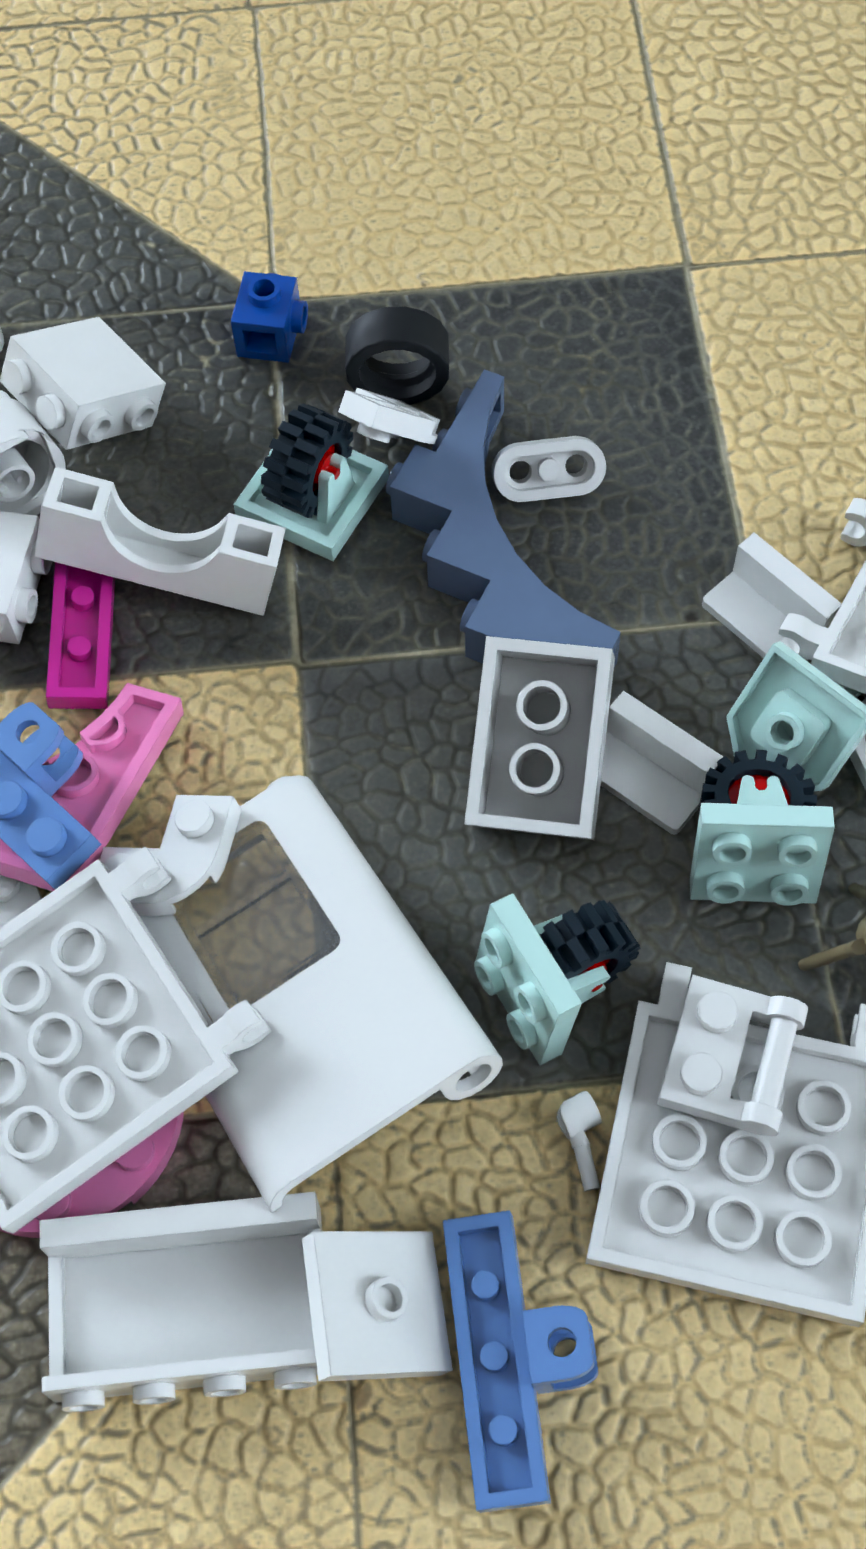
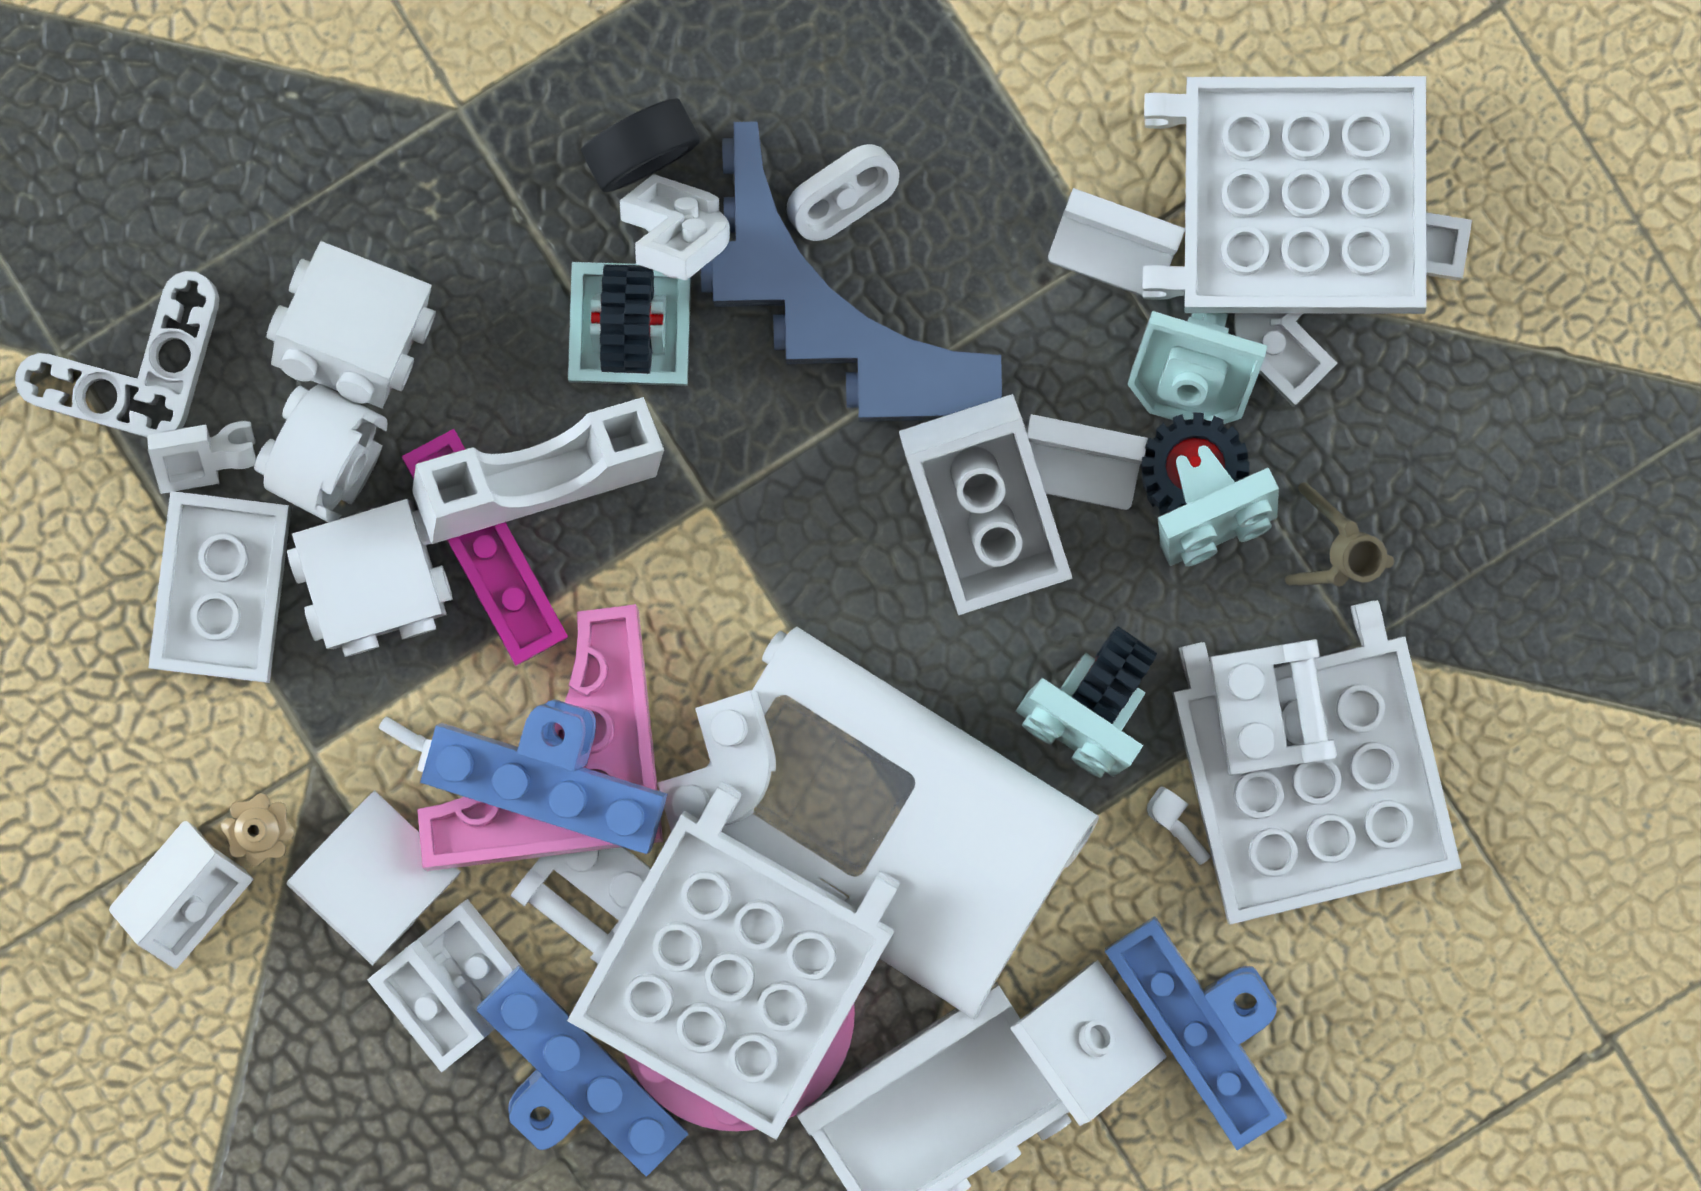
camera: 35 degrees left, 25 degrees up
(268, 316) = (476, 141): blue brick -> none

